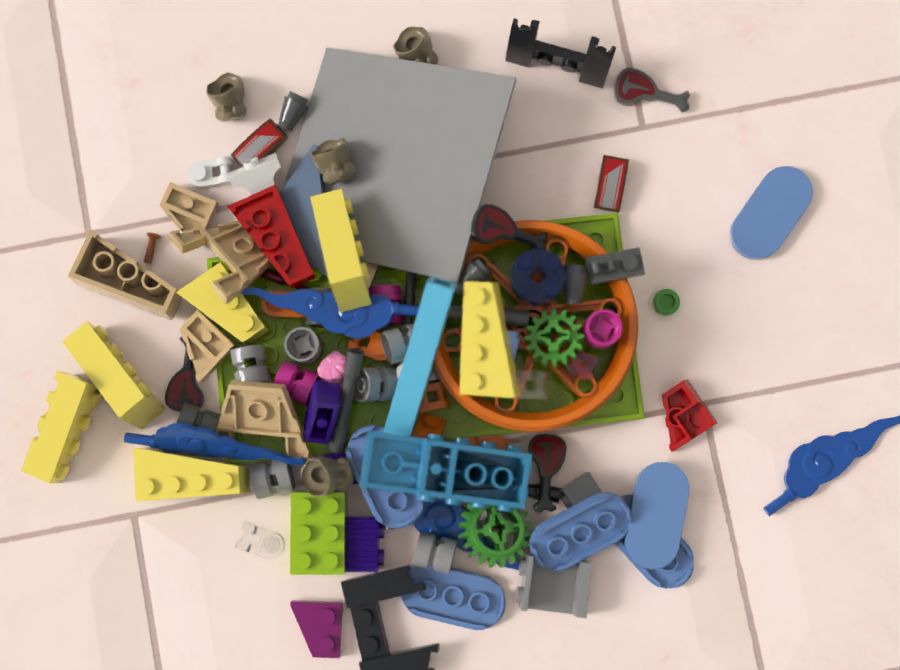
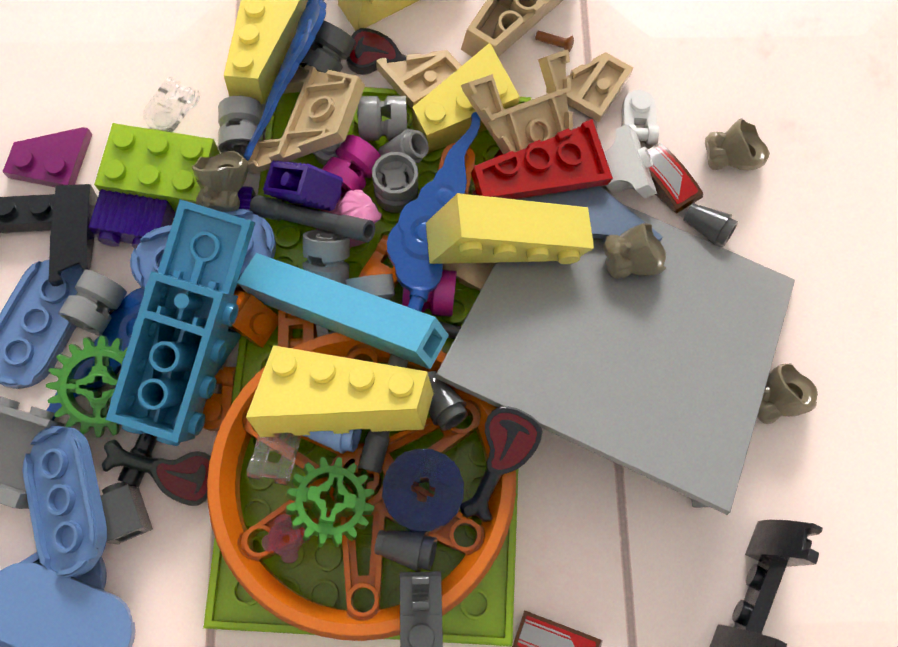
camera: 90 degrees right, 10 degrees down
(273, 343) = (408, 142): none -> light grey cone
(602, 329) = (326, 574): dark pink wheel -> none

